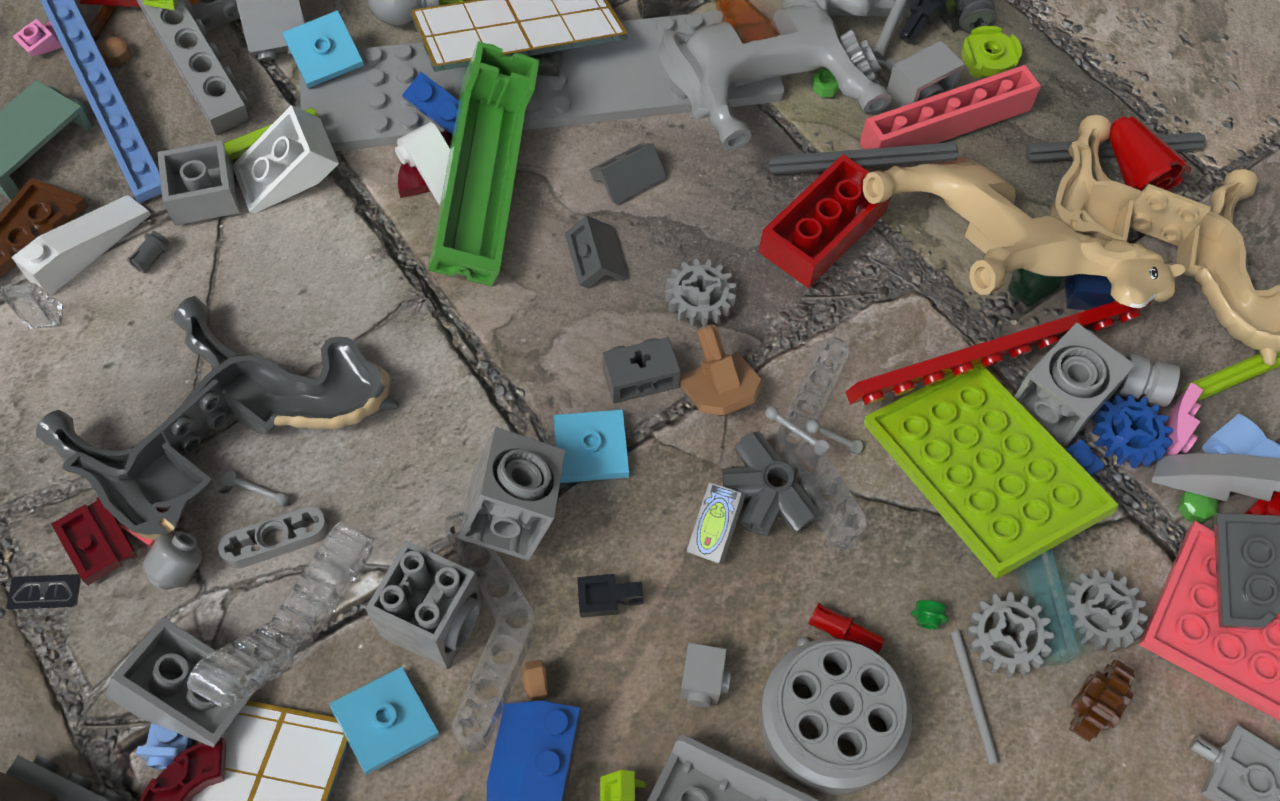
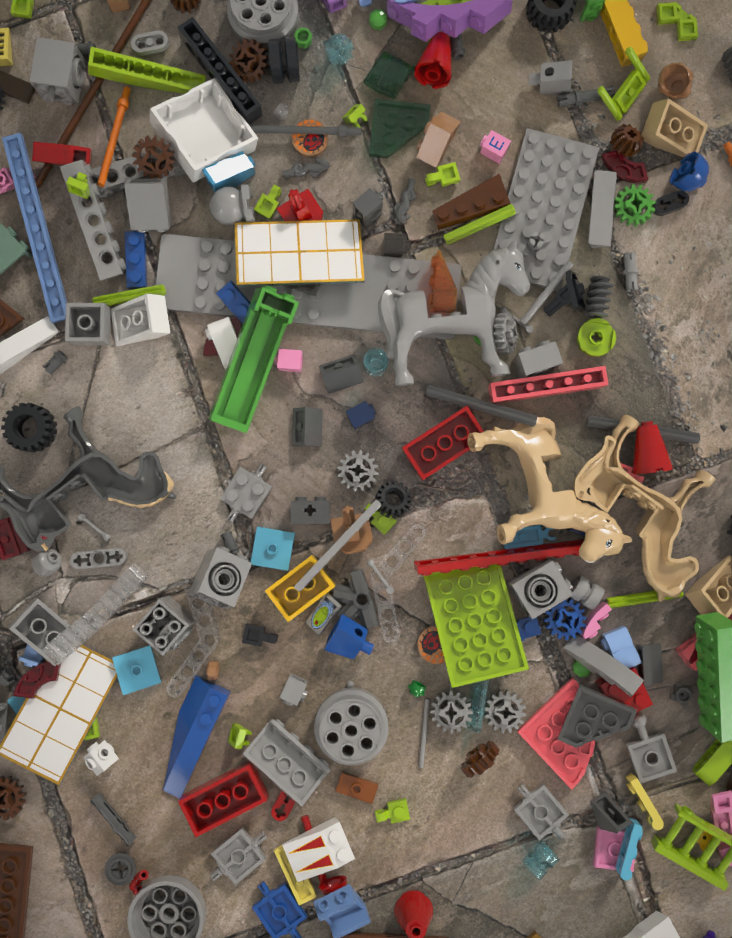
camera: 20 degrees right, 25 degrees up
(100, 331) = (15, 421): none -> black tyre
(115, 51) = (50, 201): medium nougat tile -> none
(261, 92) = (135, 260): none -> blue plate
(323, 49) = (175, 240): medium azure plate -> none
(520, 370) = (246, 493): none -> light grey plate
(541, 168) = (289, 360): none -> bright pink brick
(660, 487) = (293, 602): none -> yellow brick
(678, 140) = (375, 362): none -> clear light blue wheel
(678, 216) = (361, 414): none -> dark blue brick
(707, 386) = (337, 545): none -> light grey tile
(764, 358) = (381, 522): none -> lime plate
(773, 317) = (401, 492): none -> black tyre
(775, 550) = (348, 639): none -> blue torso
(844, 628) = (372, 685): red axle -> none
(854, 445) = (413, 585): light grey hinge -> none
(928, 535) = (430, 646): none -> tile
(1010, 321) = (529, 536): none -> dark azure plate

